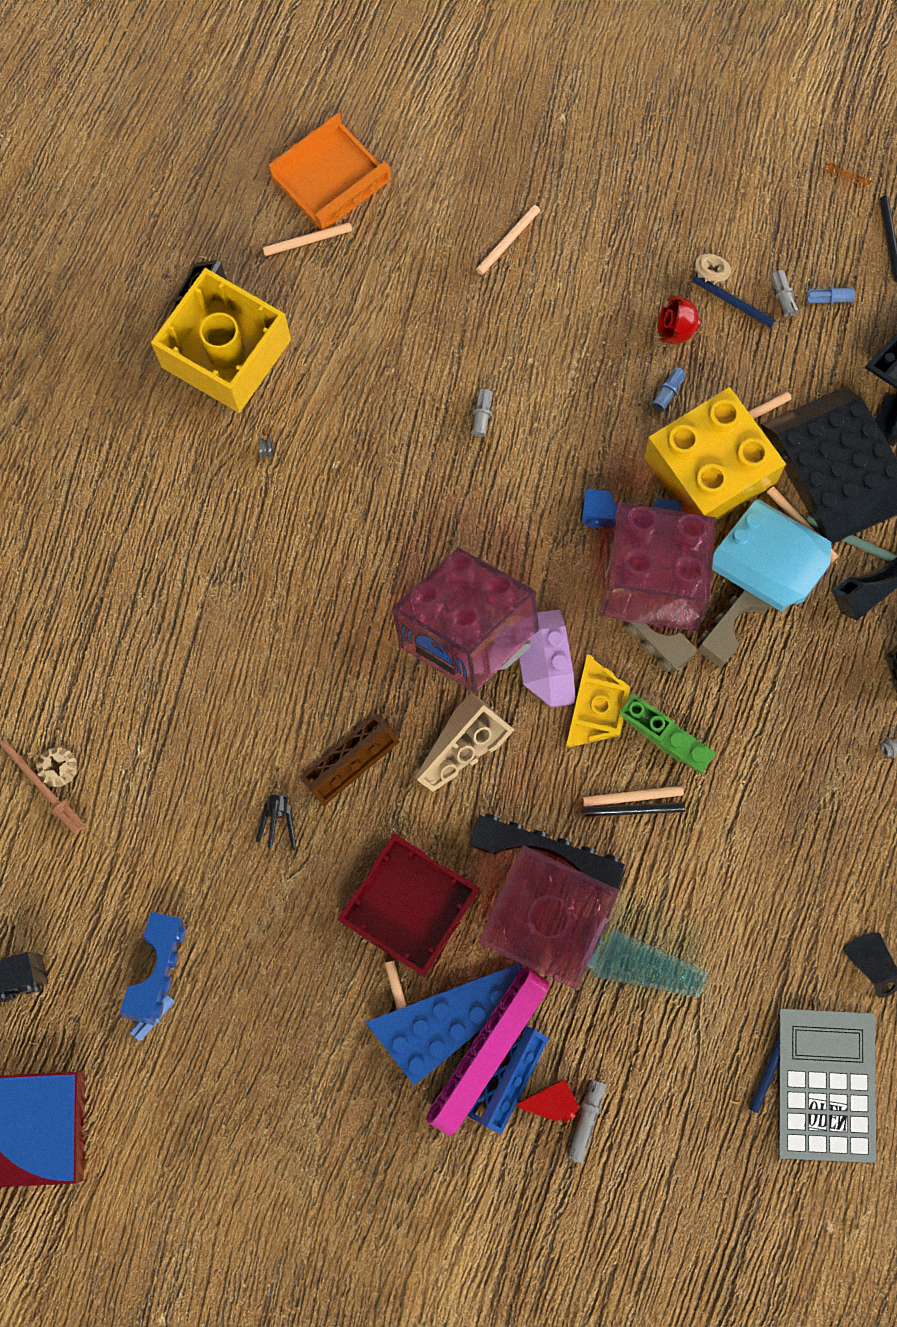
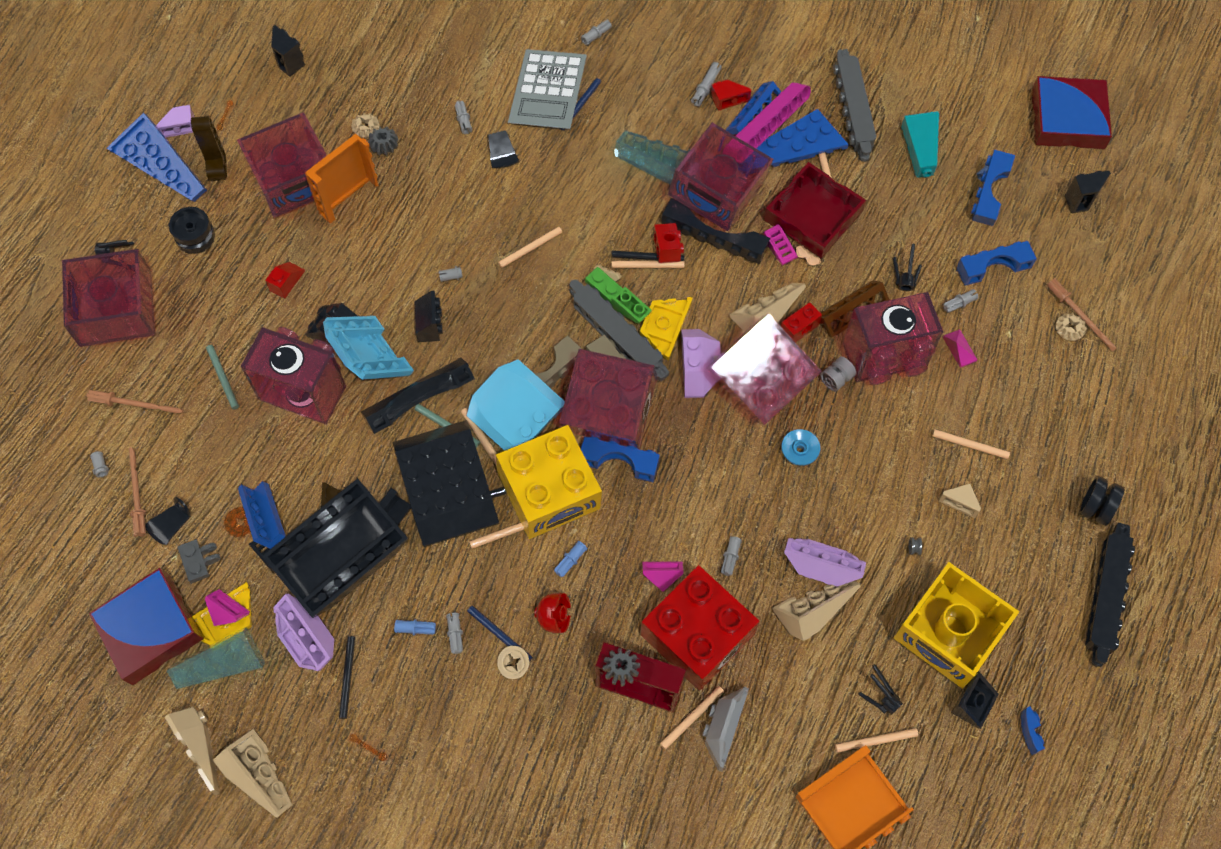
camera: 175 degrees left, 10 degrees down
(39, 419) = (1109, 594): none -> black hinge
(39, 516) = (1101, 500): none -> black wheel
(139, 262) = (1030, 722): none -> blue slope
(183, 838) = (1016, 256): none -> blue arch
(195, 586) = (971, 444): none -> light nougat bar
(204, 785) = (960, 301): none -> light grey axle
(205, 719) = (960, 348): none -> dark pink slope
(210, 509) = (962, 499): none -> tan slope
(254, 1048) = (922, 141): none -> teal slope
(295, 275) = (890, 701): none -> black plant
(297, 685) = (892, 338): none -> clear pink brick
(357, 1111) = (855, 104): none -> dark grey hinge
(360, 661) = (838, 373): none -> light grey wheel
(372, 415) = (824, 562): none -> lavender wedge
(383, 362) = (811, 613): none -> tan wedge
(408, 541) = (800, 439): none -> dark azure dish
(418, 722) = (802, 322): none -> red brick
(419, 835) = (811, 258): none -> light nougat piece
(467, 861) = (776, 234): none -> dark pink slope
(473, 231) = (723, 726): none -> light grey wedge
(512, 314) = (699, 627): none -> red brick
(560, 387) = (662, 573): none -> dark pink slope
(572, 240) = (656, 685): none -> dark red tile
(598, 206) = (620, 674): none -> dark grey gear
(620, 835) = (668, 243): none -> red brick
(661, 685) = (612, 324): none -> dark grey hinge
(687, 773) = (614, 275): none -> tan piece
(772, 1206) = (596, 32): none -> light grey axle
(796, 806) = (526, 249): none -> light nougat bar

